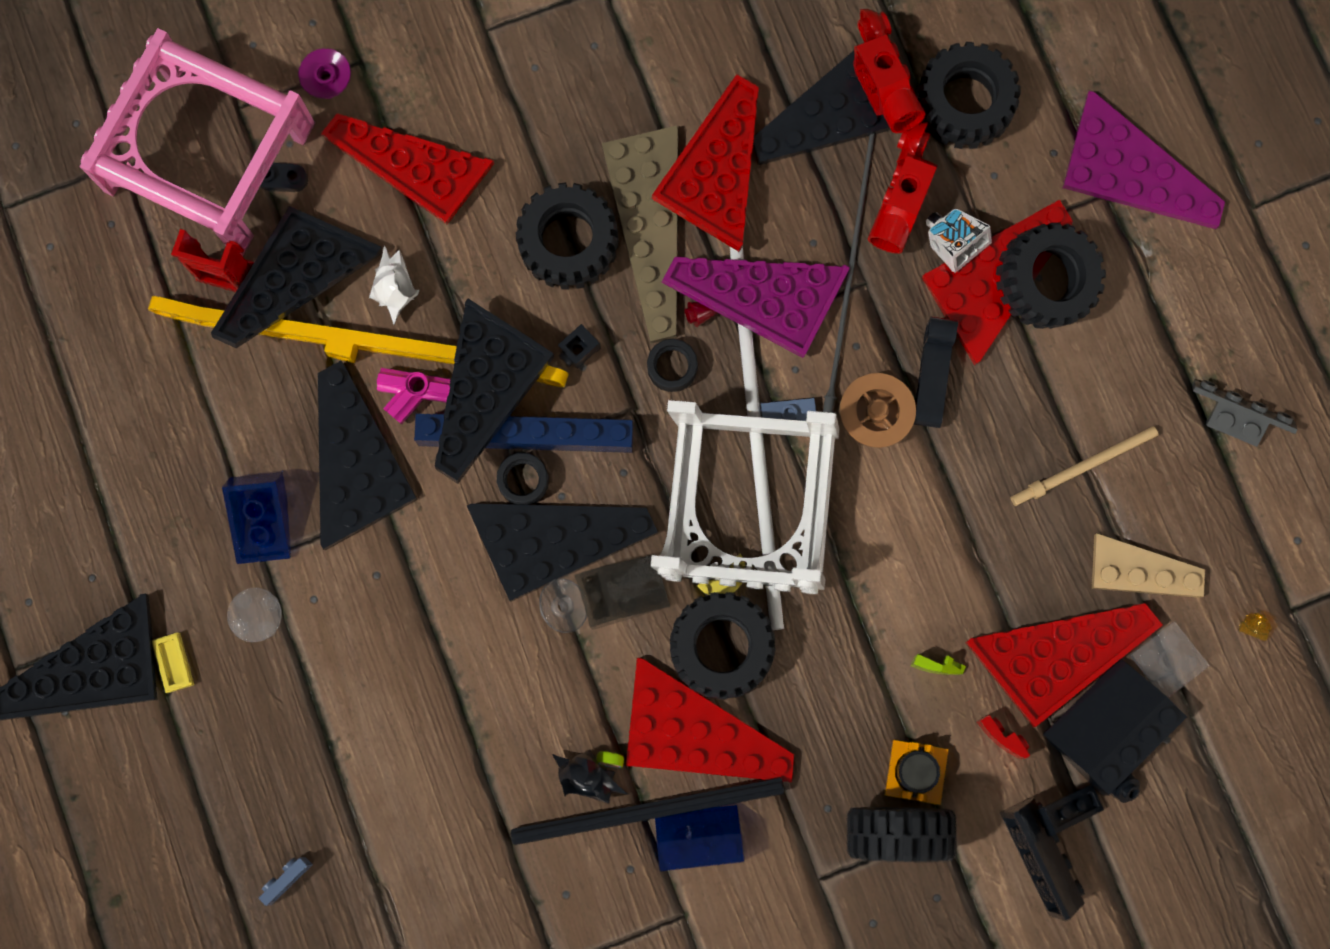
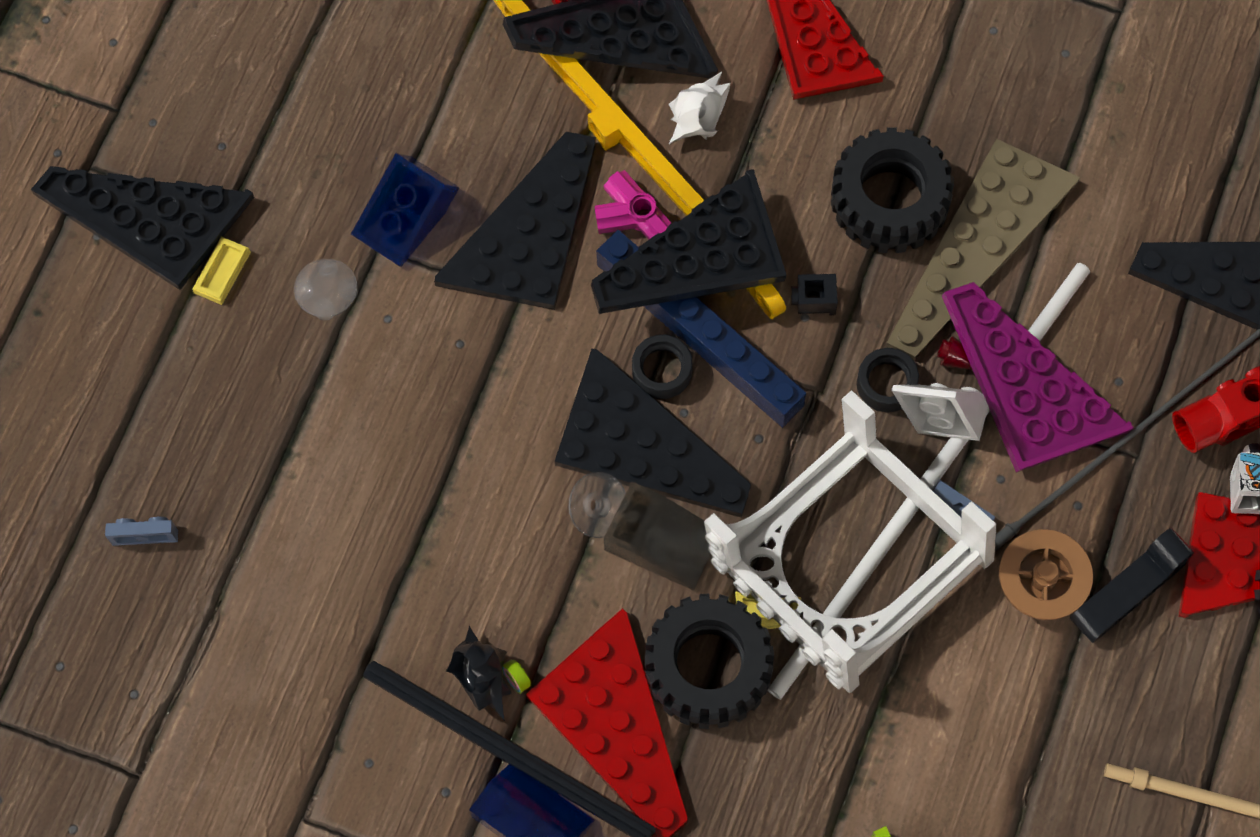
camera: 40 degrees right, 10 degrees down
(713, 171) = (1078, 240): red wing -> none
(727, 356) = (943, 410): none -> white slope

